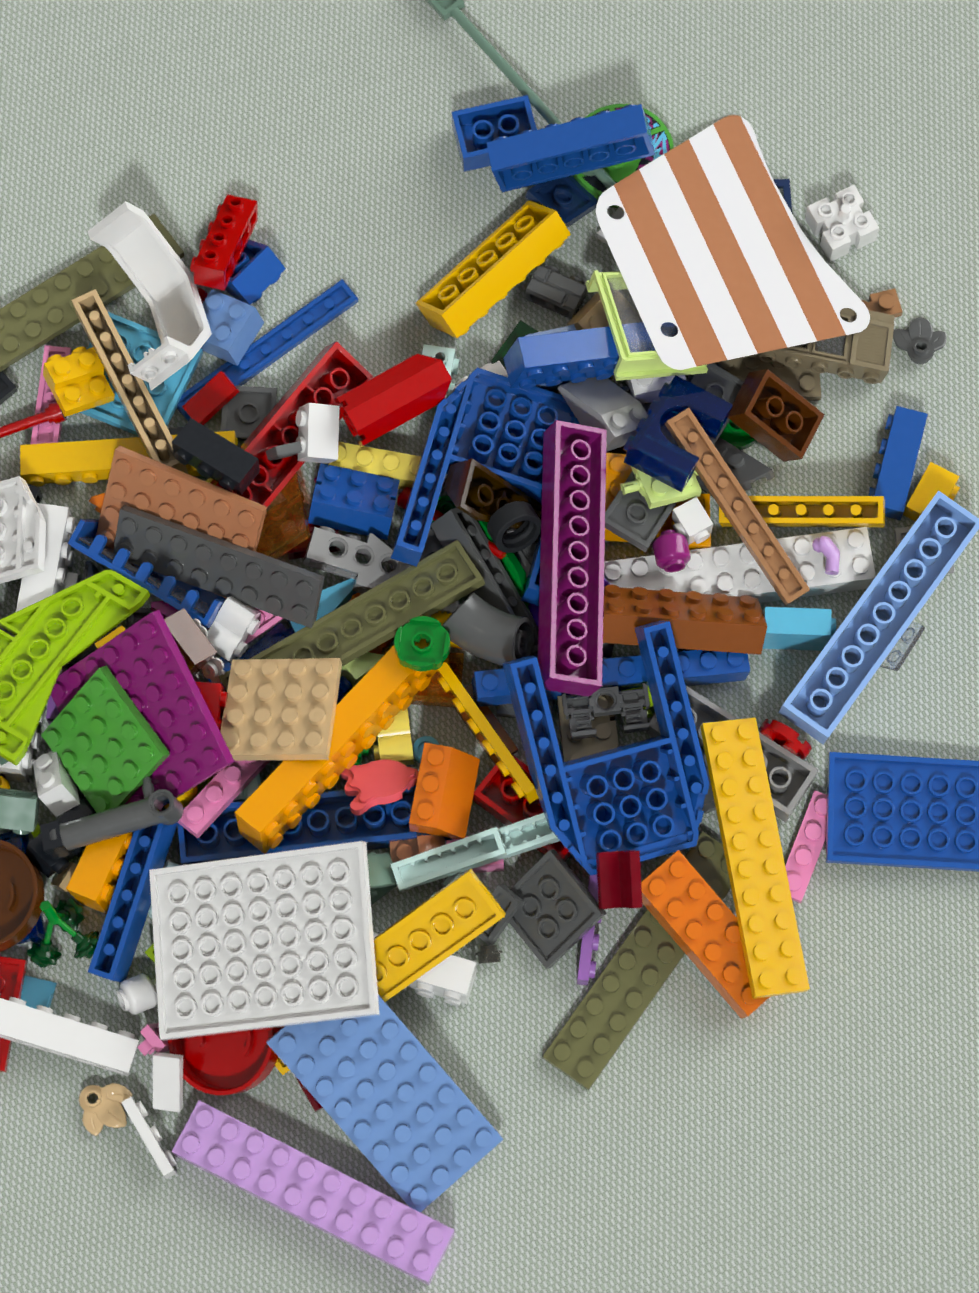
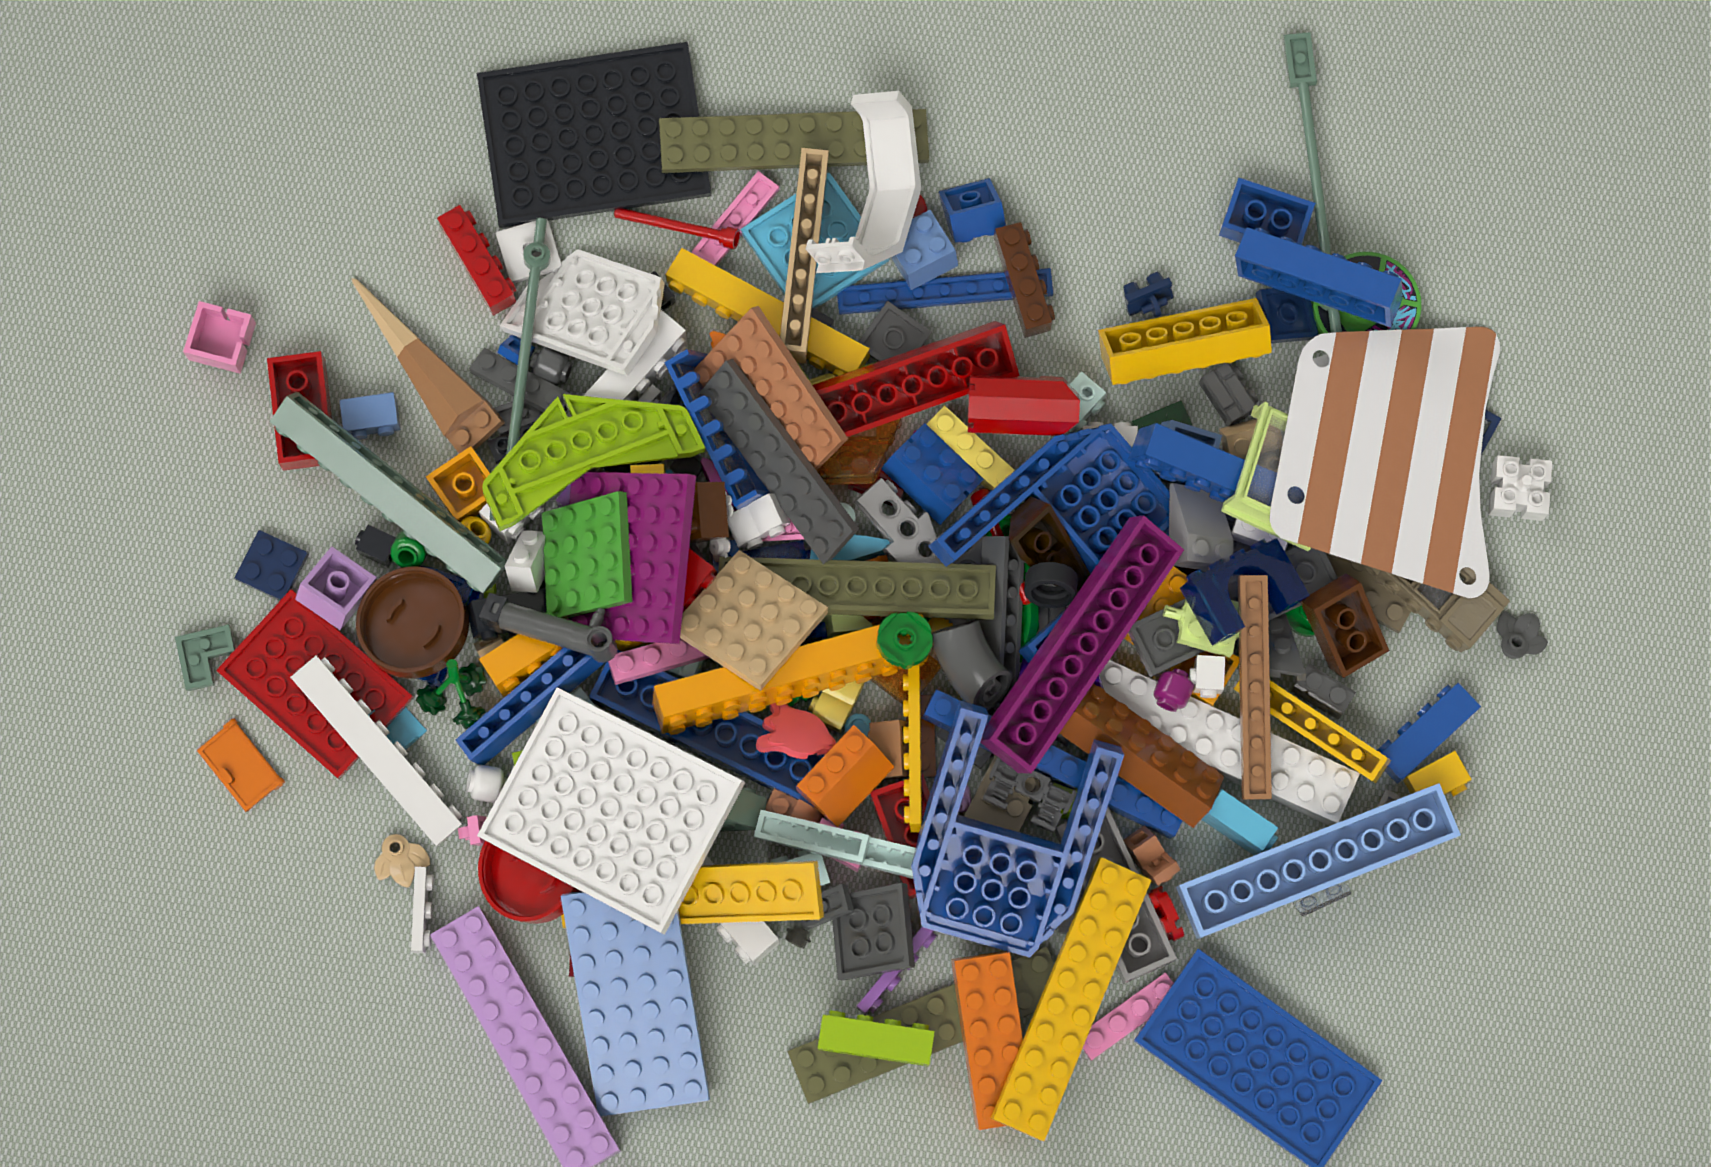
camera: 30 degrees right, 5 degrees up
(77, 381) = (764, 222): yellow plate -> none
(168, 1081) = (464, 873): white tile -> none
(211, 398) = (868, 306): red tile -> none
(215, 457) = (832, 367): black brick -> none
(224, 242) = (967, 174): red brick -> none
(284, 451) = (896, 395): dark grey tile -> none
(318, 432) = (936, 396): white brick -> none
(326, 299) = (1022, 279): none -> reddish brown brick
(440, 254) = (1150, 297): none -> dark blue hips
(462, 738) = (890, 741): none -> medium nougat brick
(612, 996) = (876, 1040): none -> lime brick
(619, 879) = (942, 946): dark red panel -> none
(741, 701) = (1150, 856): none -> nougat brick
(793, 480) = (1324, 692): none -> dark grey brick
(830, 551) = (1312, 777): lavender arm -> none
(884, 302) = (1509, 582): medium nougat plate -> none

